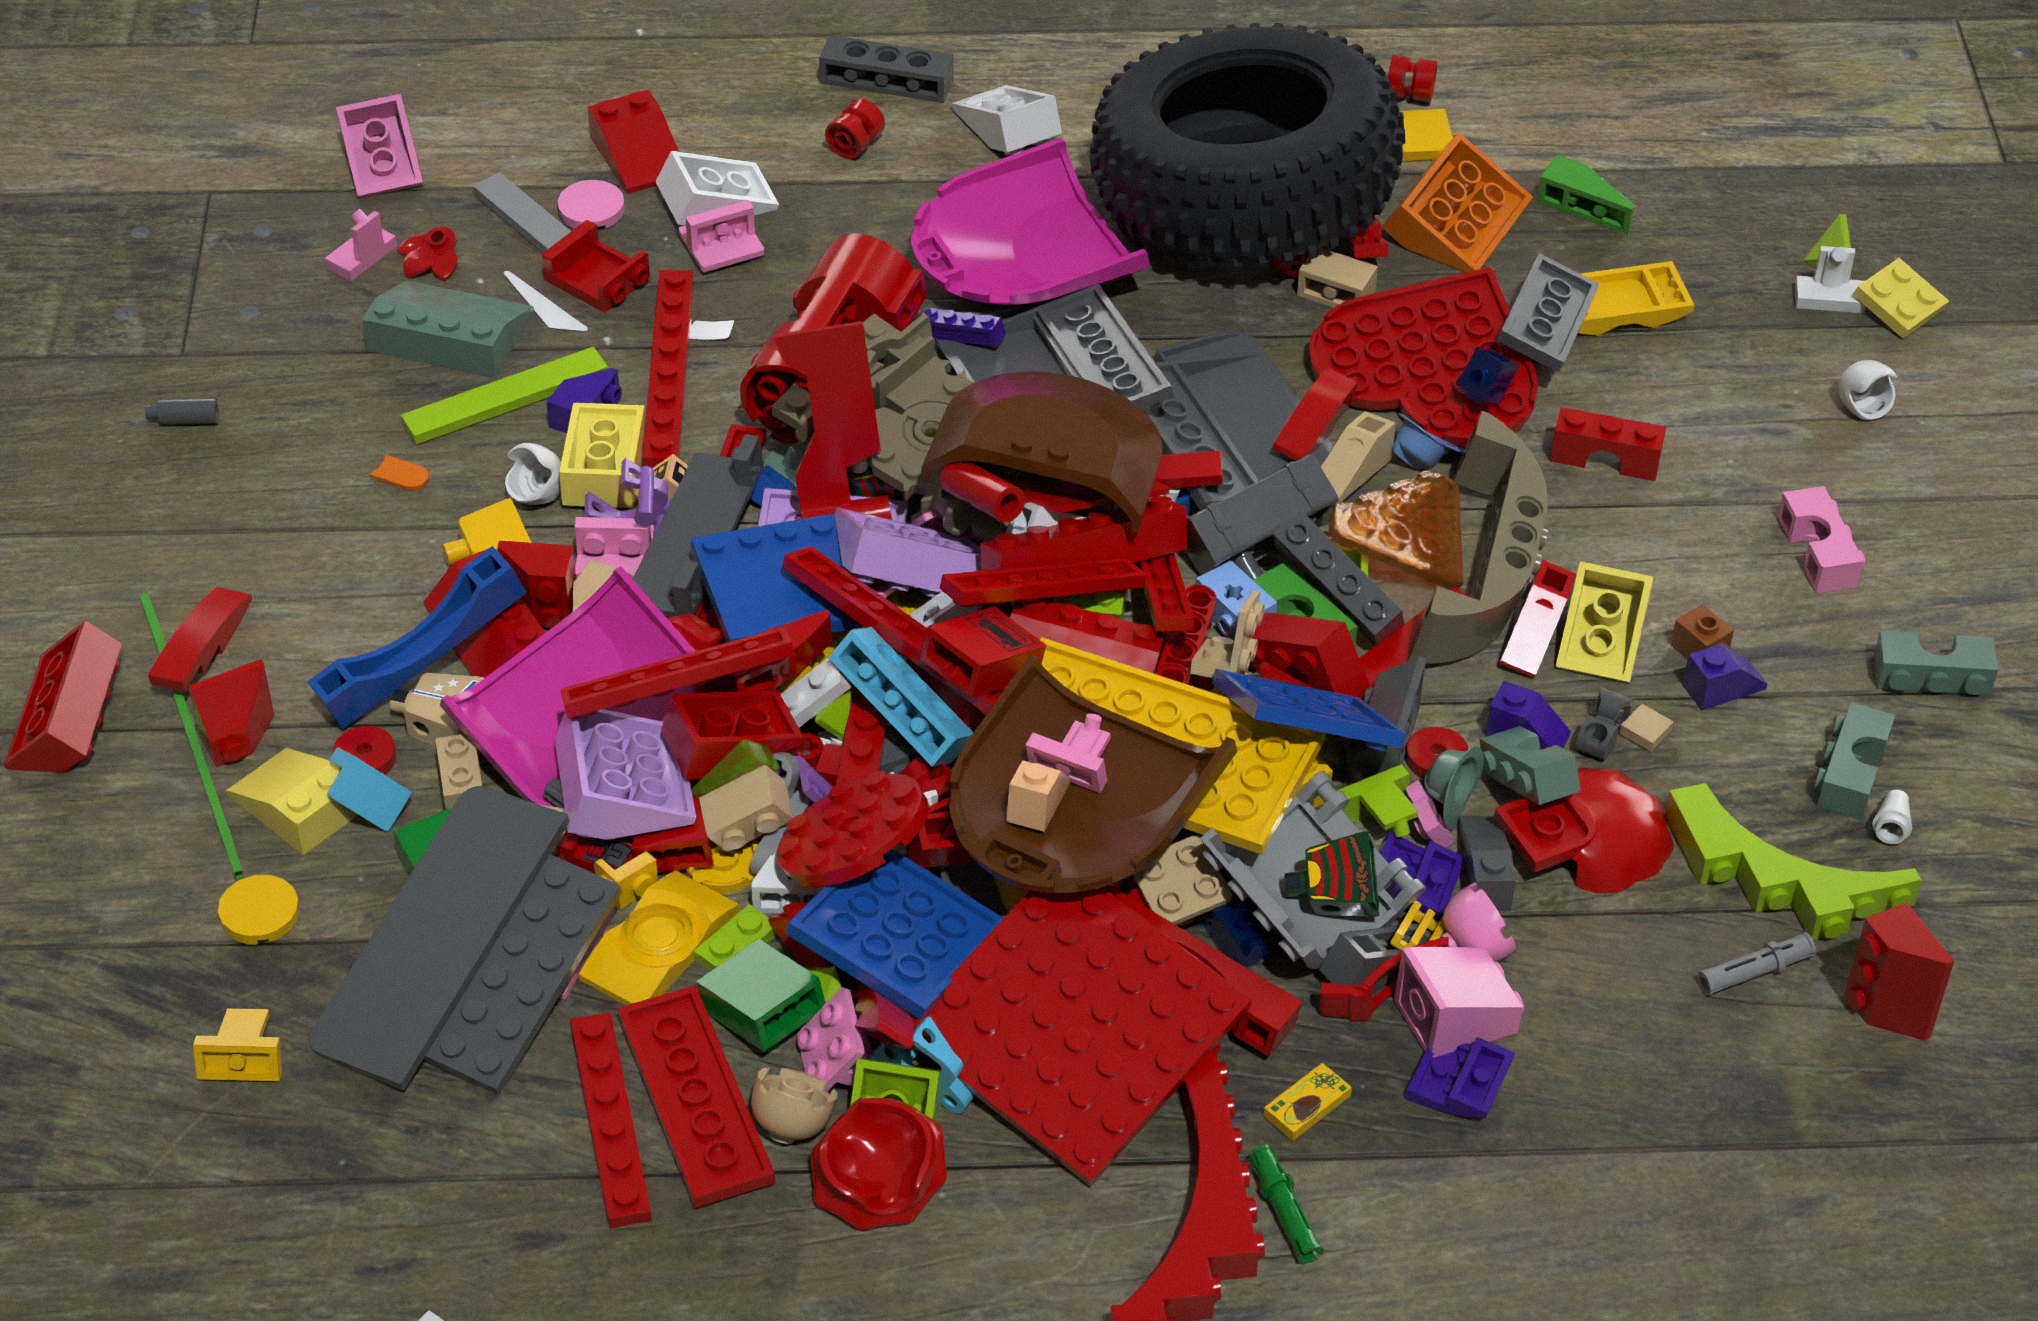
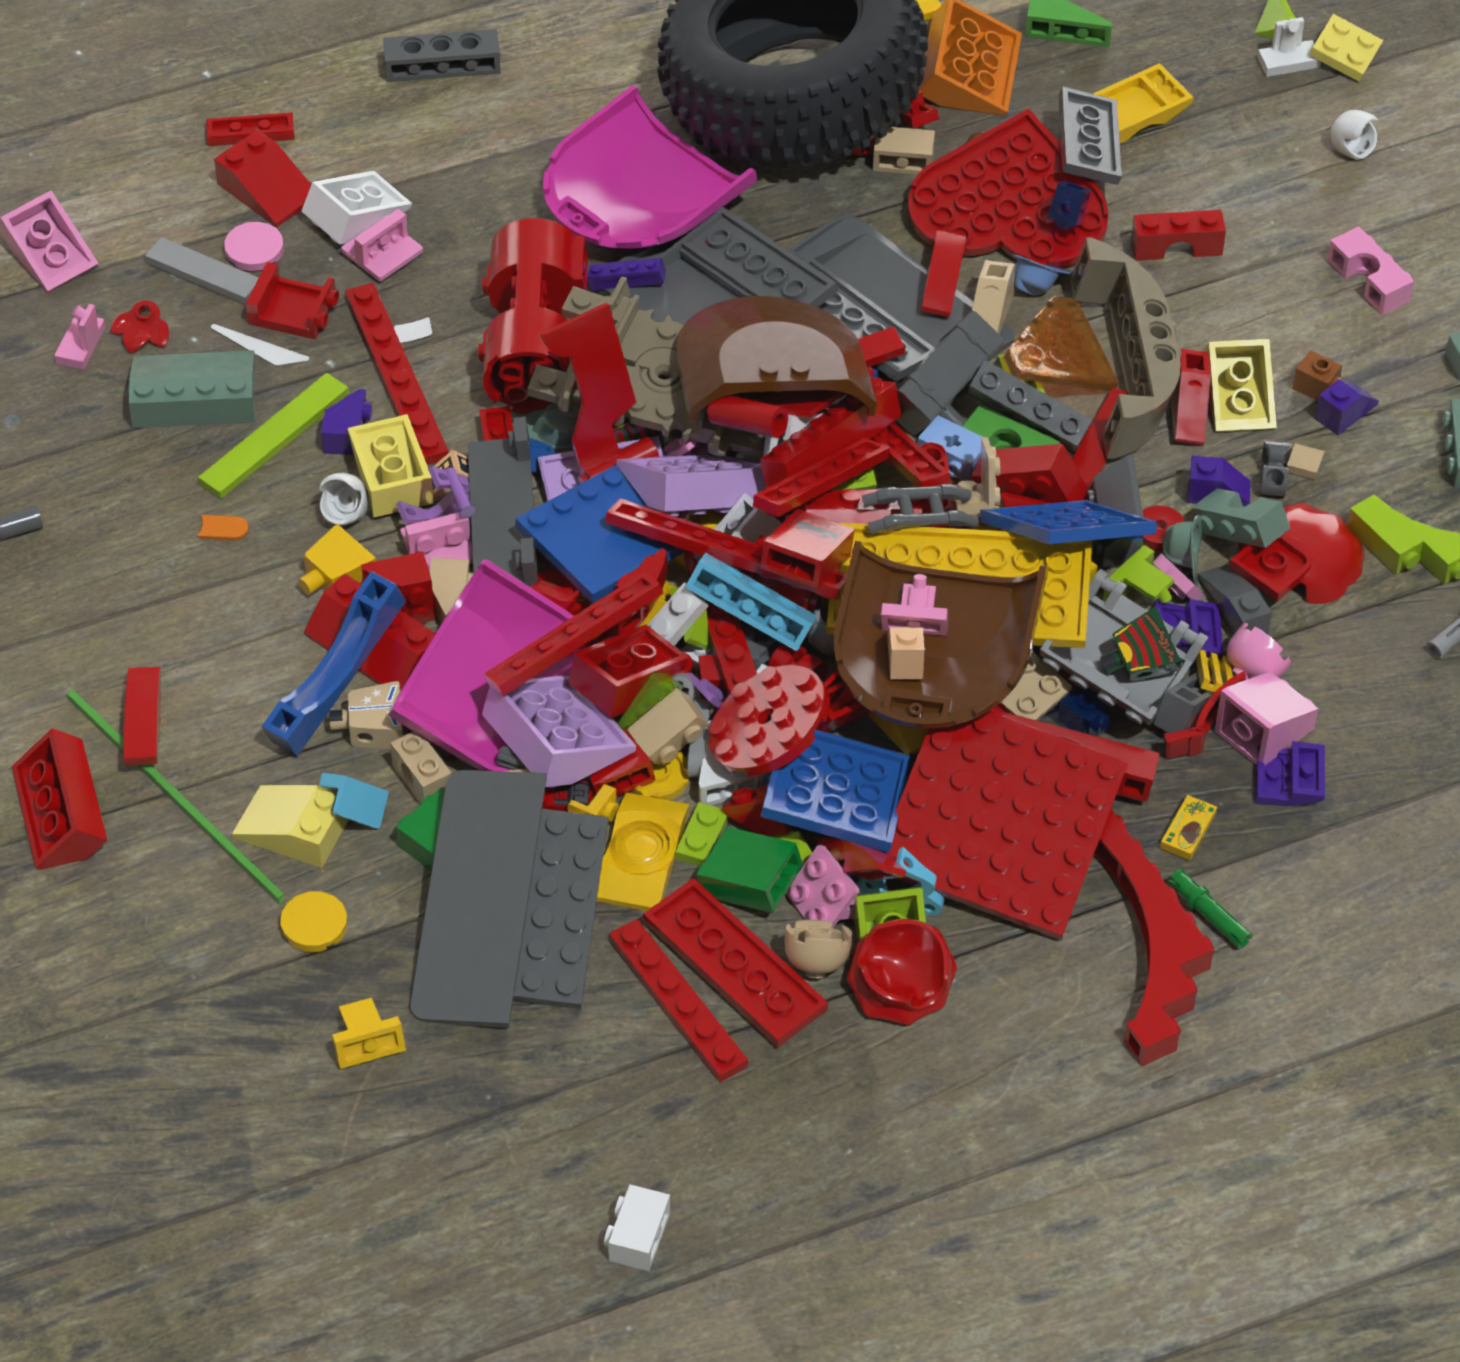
camera: 20 degrees left, 5 degrees up
(232, 711) = (207, 771): red slope -> none
(370, 740) = (325, 759): red piece -> none
(668, 94) = (234, 129): none -> red tile
(855, 128) = (445, 118): red wheel -> none
(1011, 118) = (567, 73): white slope -> none
(1121, 651) = (907, 518): none -> dark grey piece

